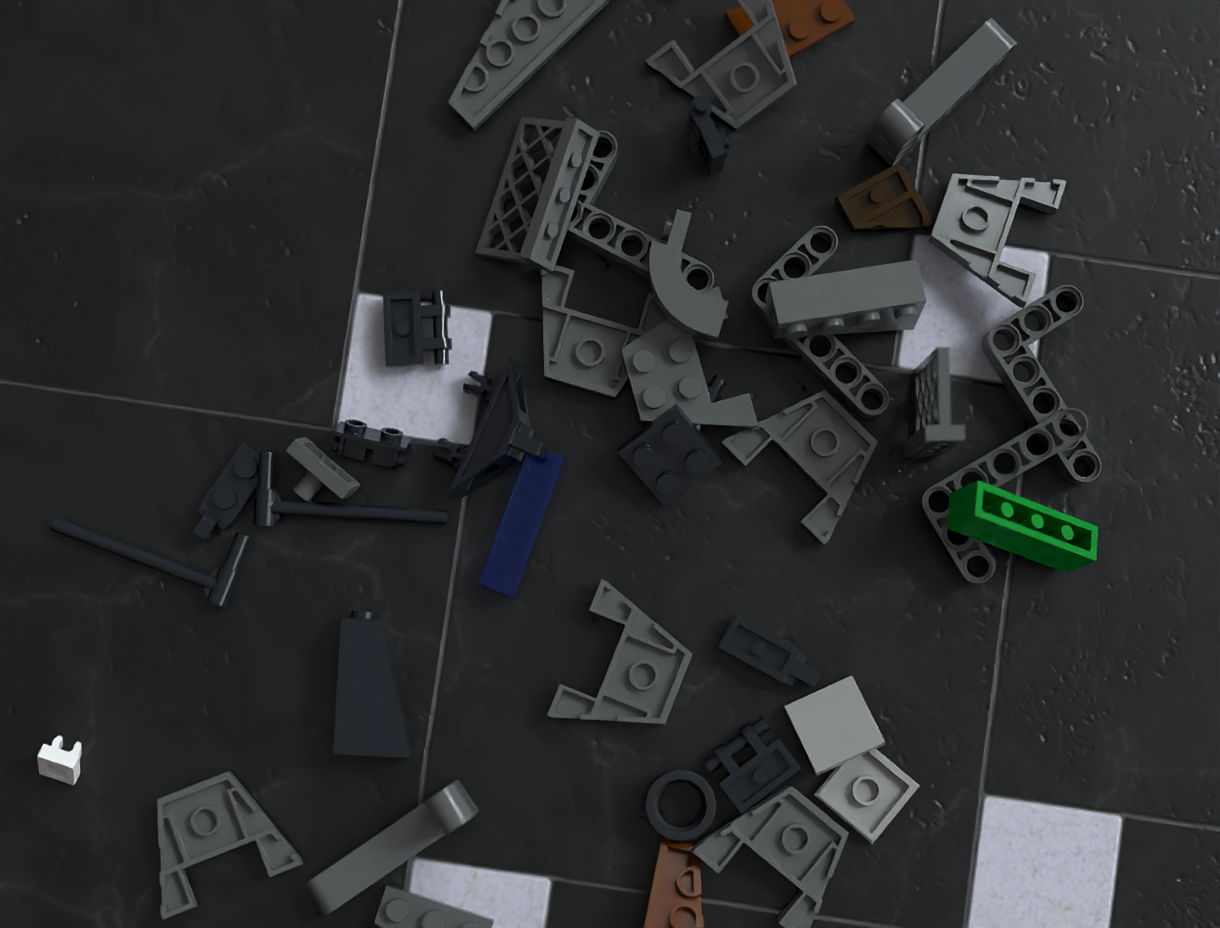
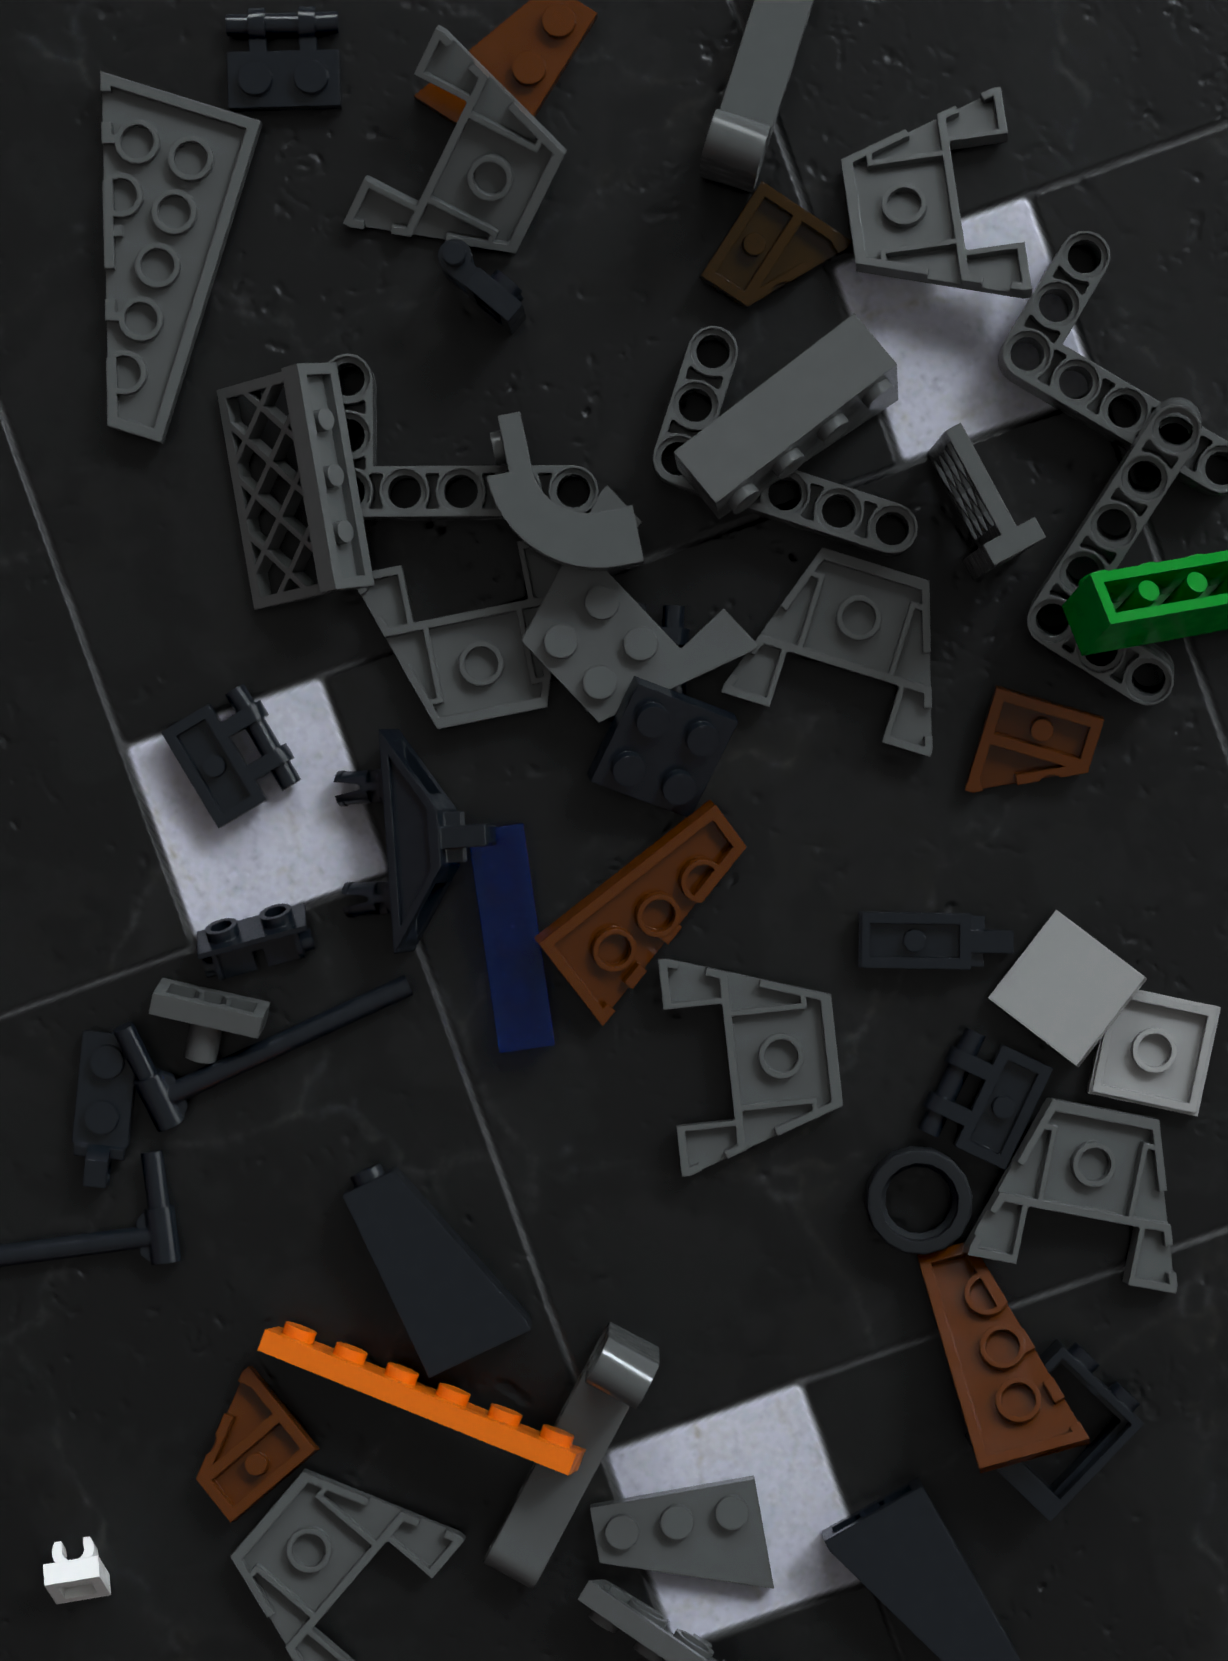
camera: 30 degrees left, 5 degrees up
(206, 743) = (253, 1448): none -> reddish brown wing
(334, 775) = (443, 1405): none -> orange plate
(594, 546) = (628, 918): none -> reddish brown wing
(888, 568) = (1031, 740): none -> reddish brown wing

